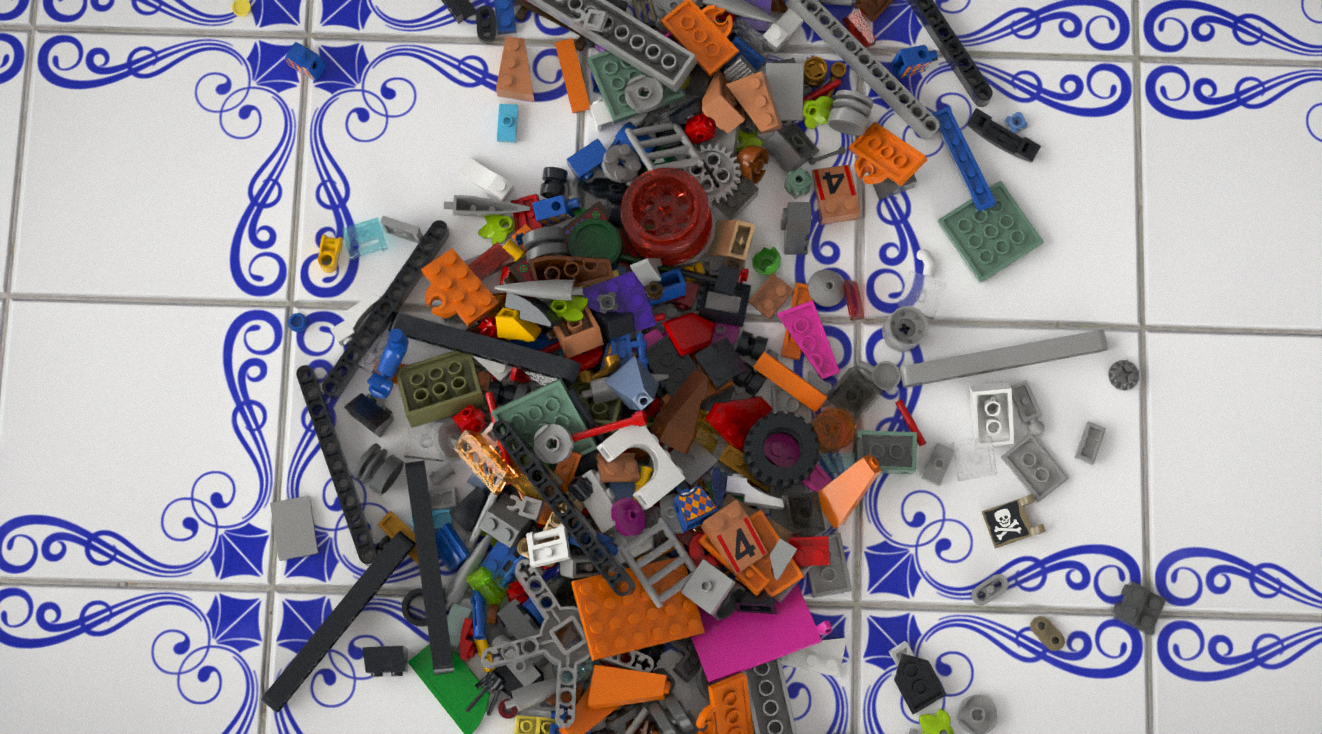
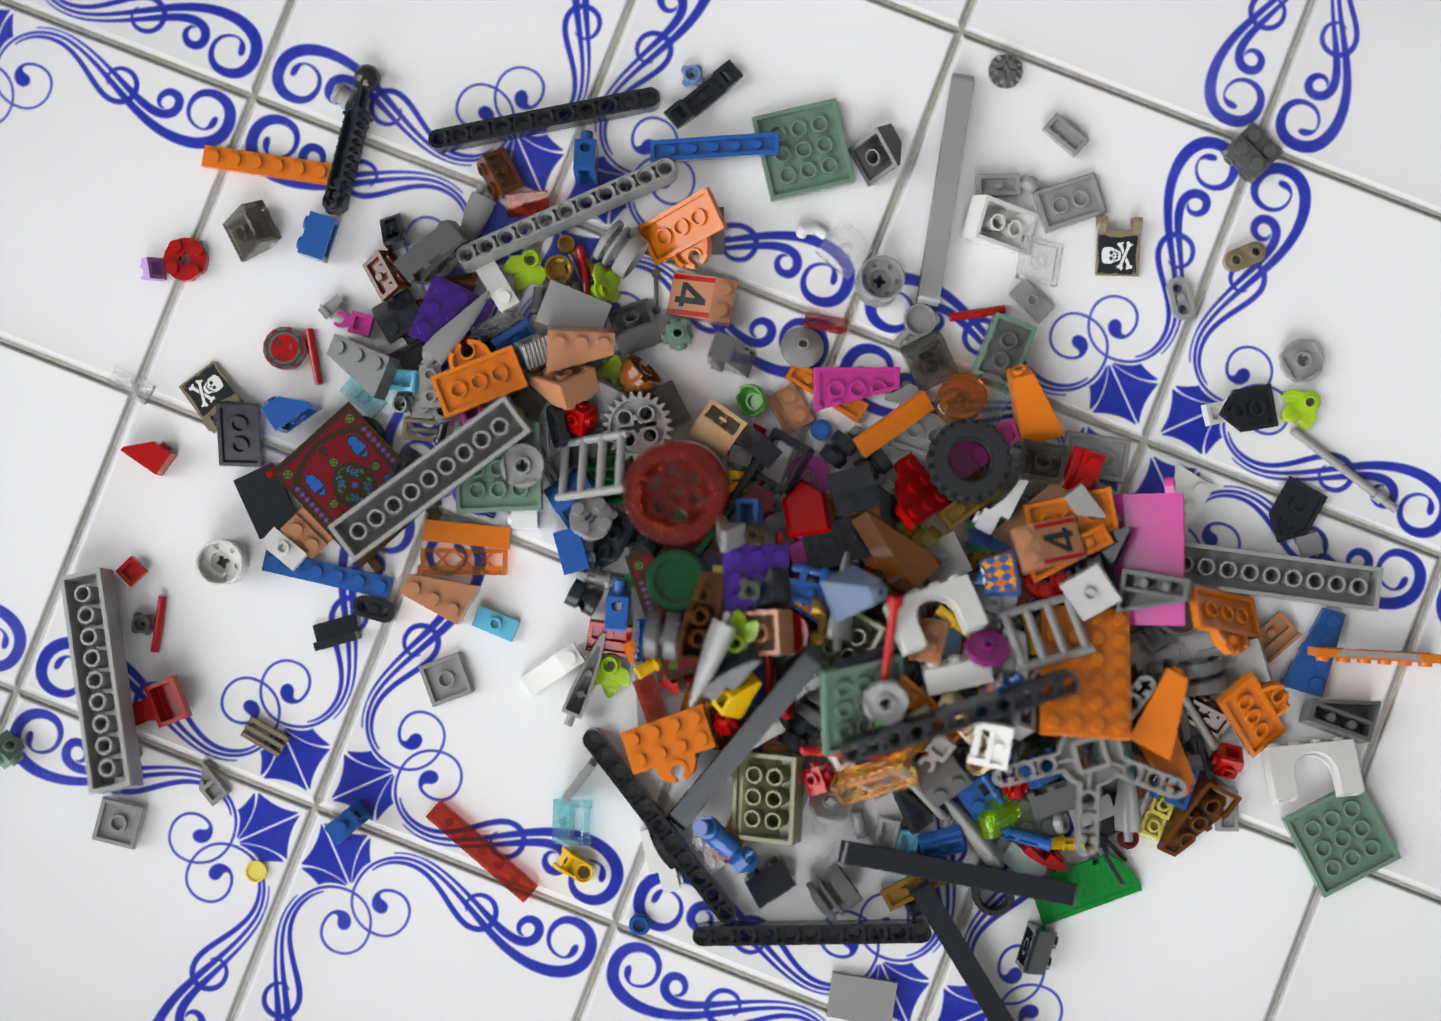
camera: 70 degrees left, 10 degrees up
(316, 176) = (482, 851): none -> clear red tile
(448, 100) = (446, 679): none -> light grey tile
(492, 616) = (1030, 822): reddish brown tile -> none
(541, 78) = (463, 570): none -> clear orange fence
(580, 488) = (943, 690): black gear -> none
(593, 20) = (422, 493): light grey plate -> none
(728, 641) = (1152, 589): none -> dark grey wedge
(763, 327) = (821, 430): none -> blue plate
(803, 46) = (525, 272): none -> lime plate
(1012, 291) = (877, 153): none -> dark grey slope

